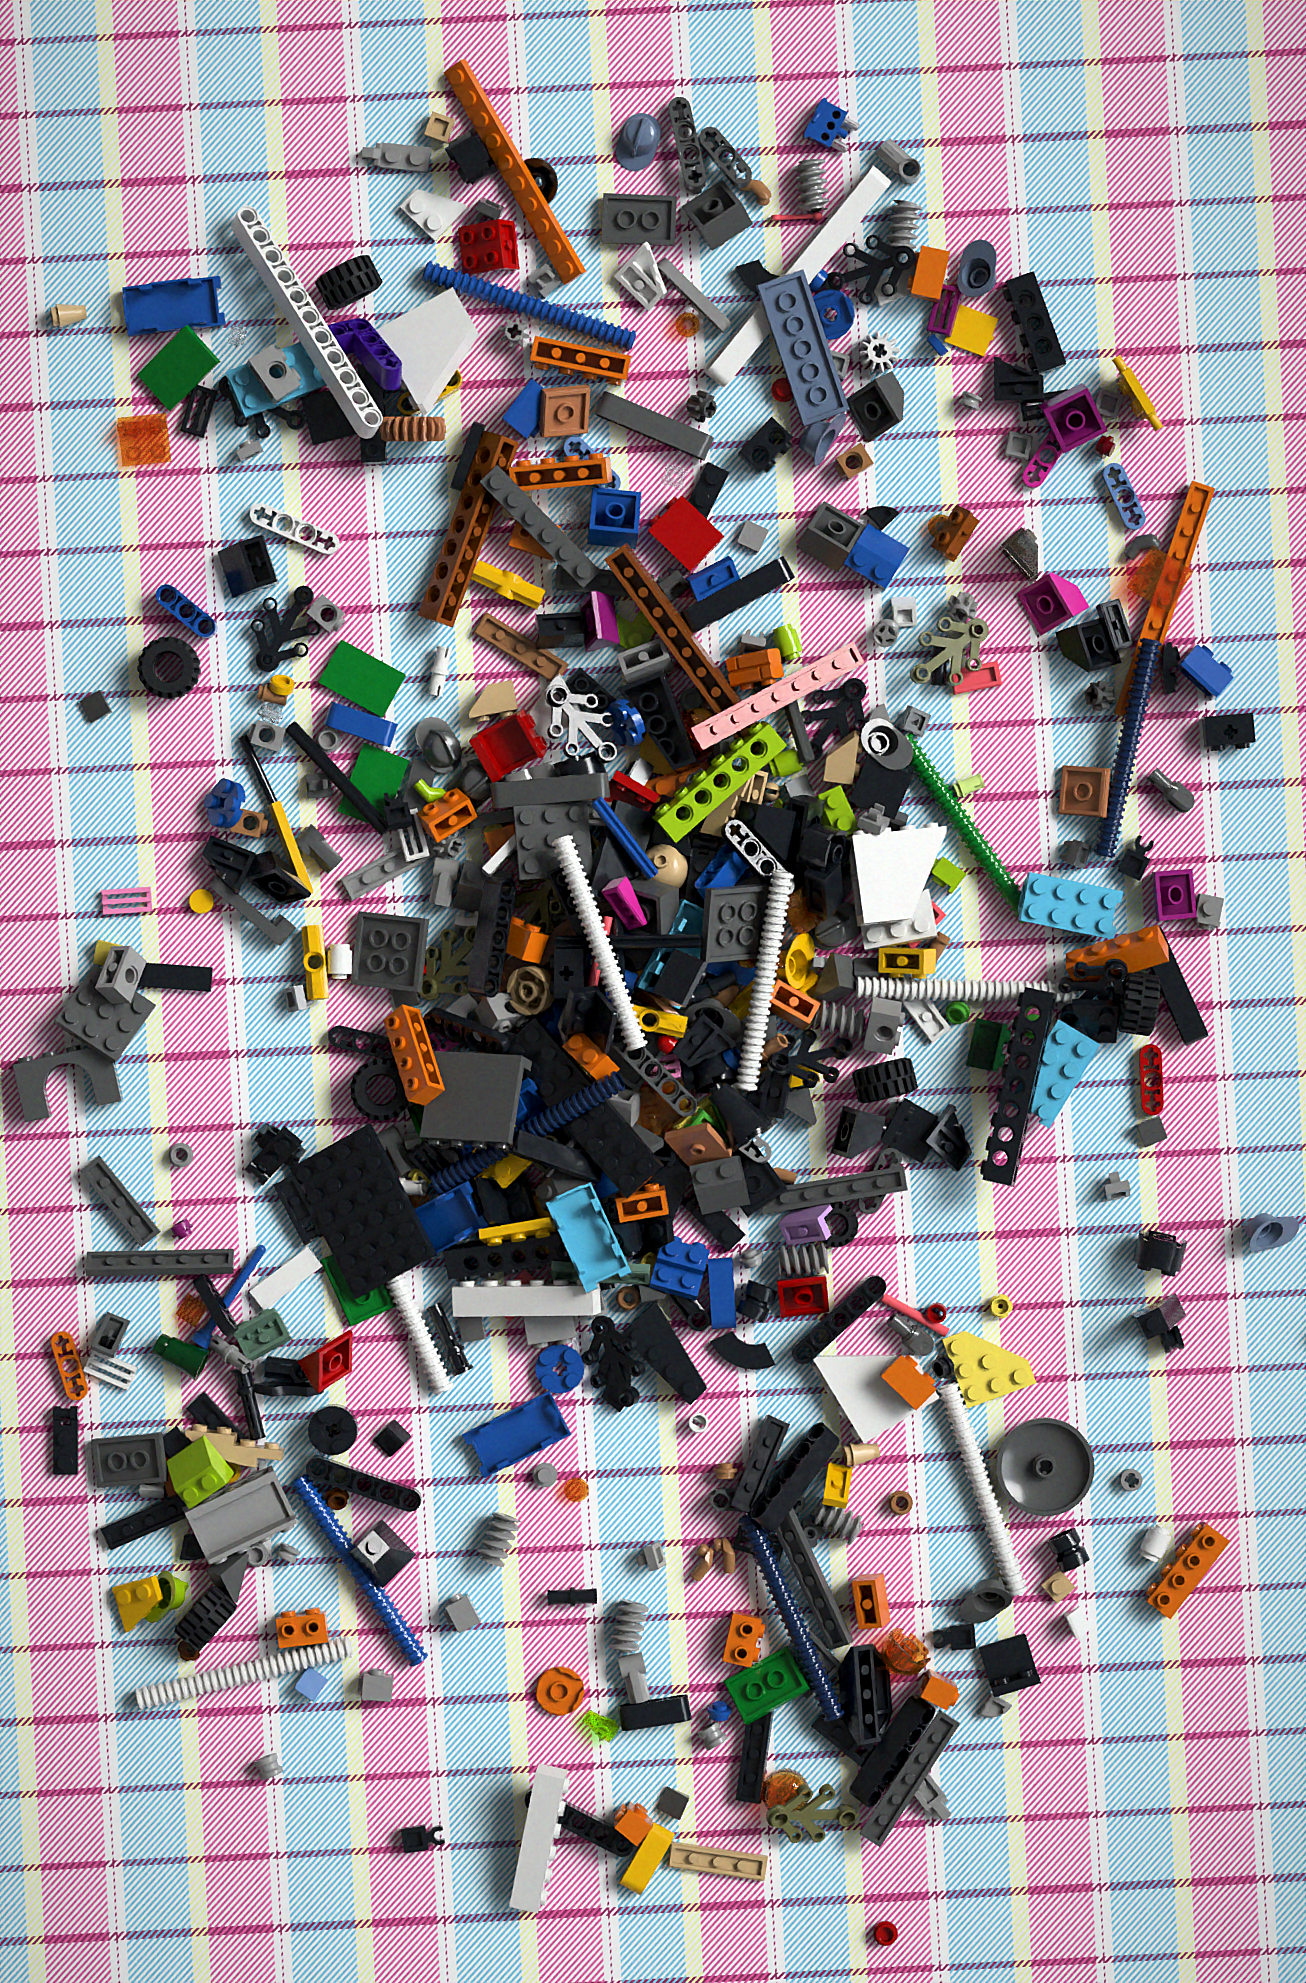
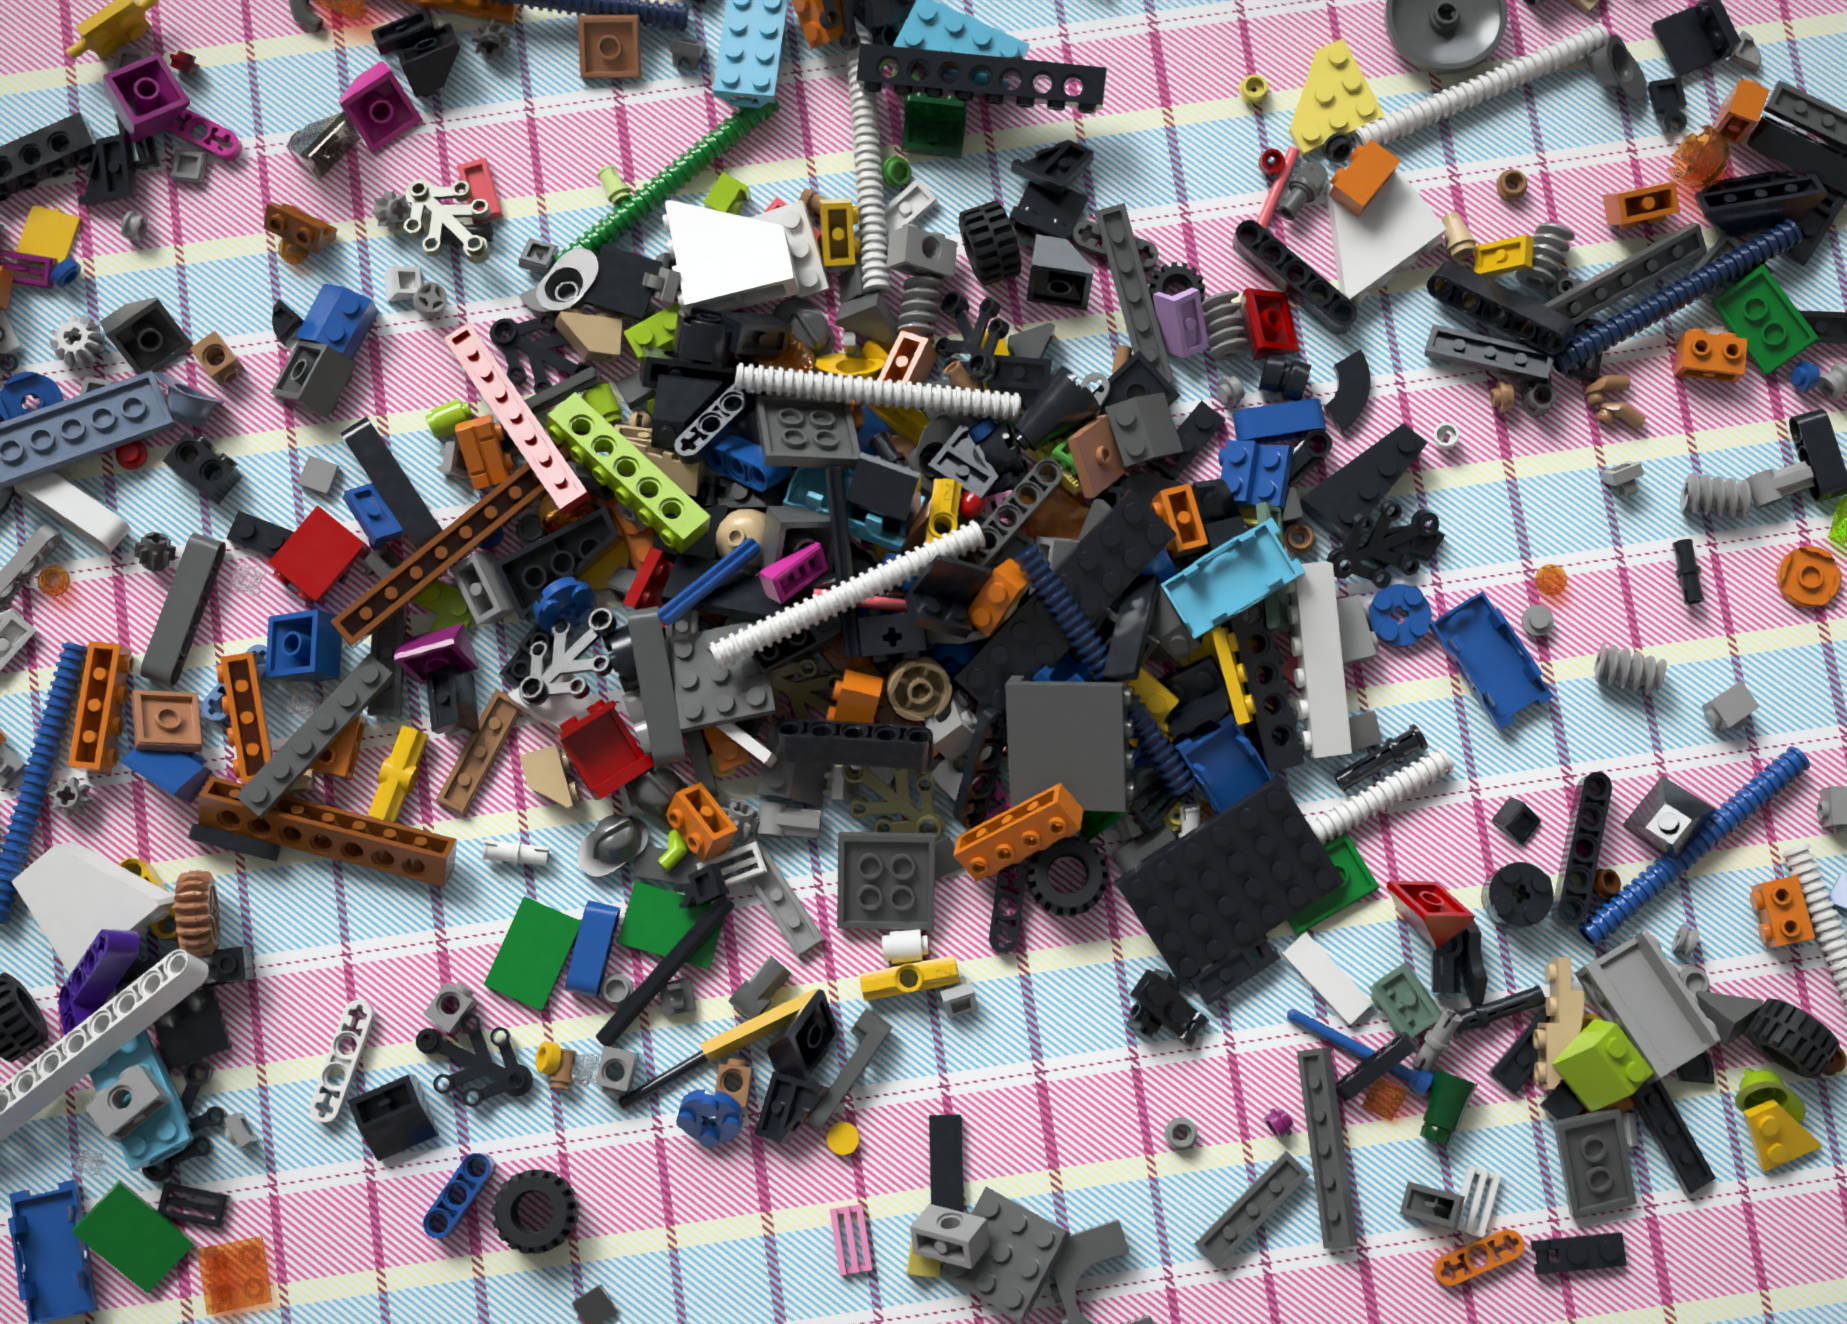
camera: 90 degrees left, 10 degrees down
(1111, 482) = (261, 19): medium blue beam -> none

